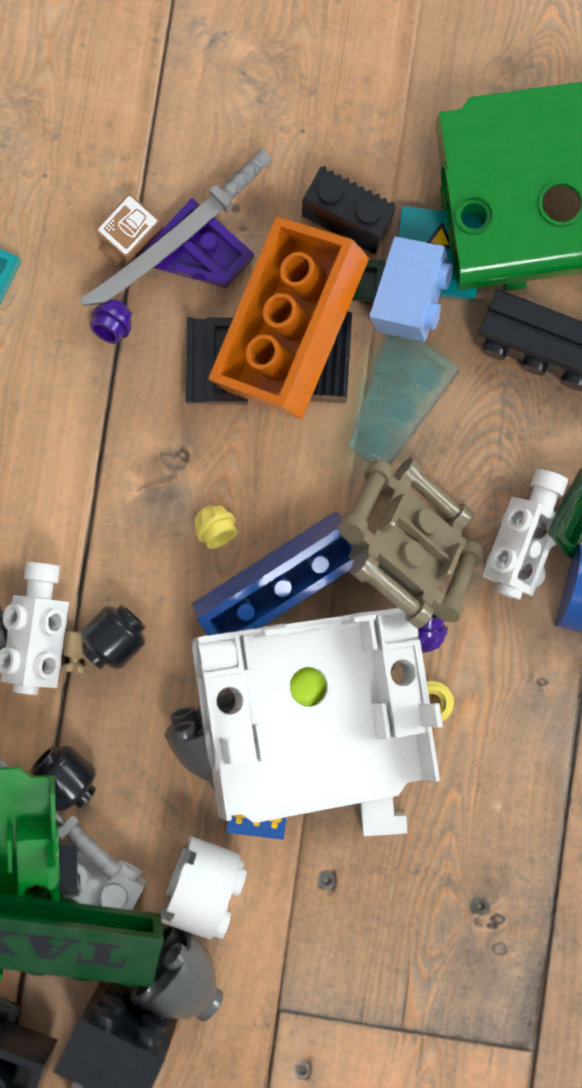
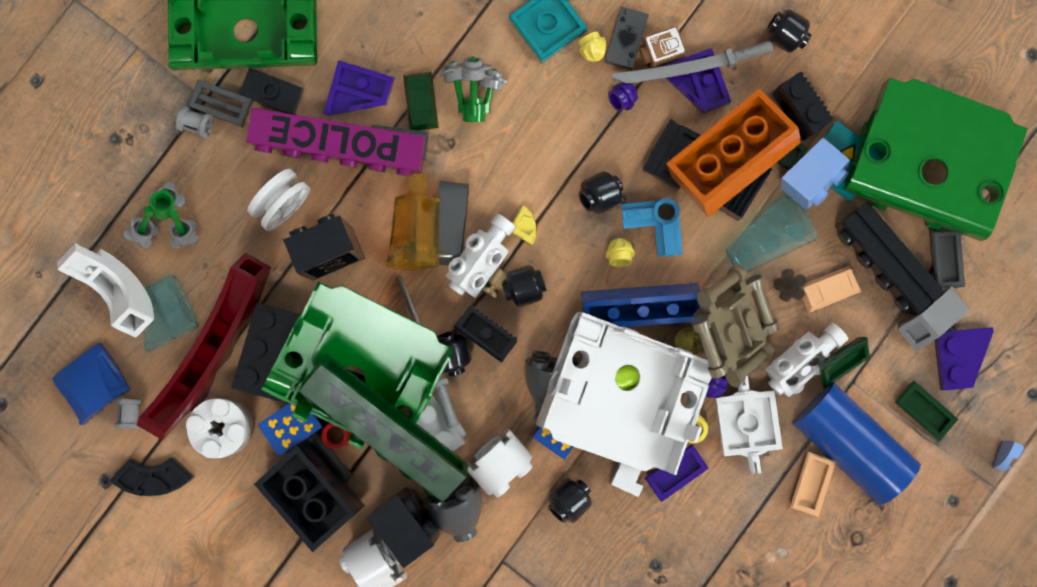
camera: 25 degrees right, 0 degrees up
(37, 278) = (592, 47): none -> light yellow plate
(68, 871) = (427, 415): black tile -> none
(74, 557) = (525, 226): none -> light yellow tile
(76, 244) = (626, 38): none -> dark grey tile
(94, 727) = (486, 333): none -> black brick
(148, 461) = (601, 192): none -> black head
(222, 459) = (666, 231): none -> dark azure piece
(279, 123) = (789, 31): none -> black head
(321, 885) = (569, 500): none -> black head
(363, 596) = (688, 340): none -> light yellow plate
(453, 758) = (666, 484): none -> dark purple tile
(457, 449) = (790, 285): none -> clear smoke plant
(500, 658) = (748, 424): none -> white plate
(509, 426) = (830, 288): none -> light nougat tile

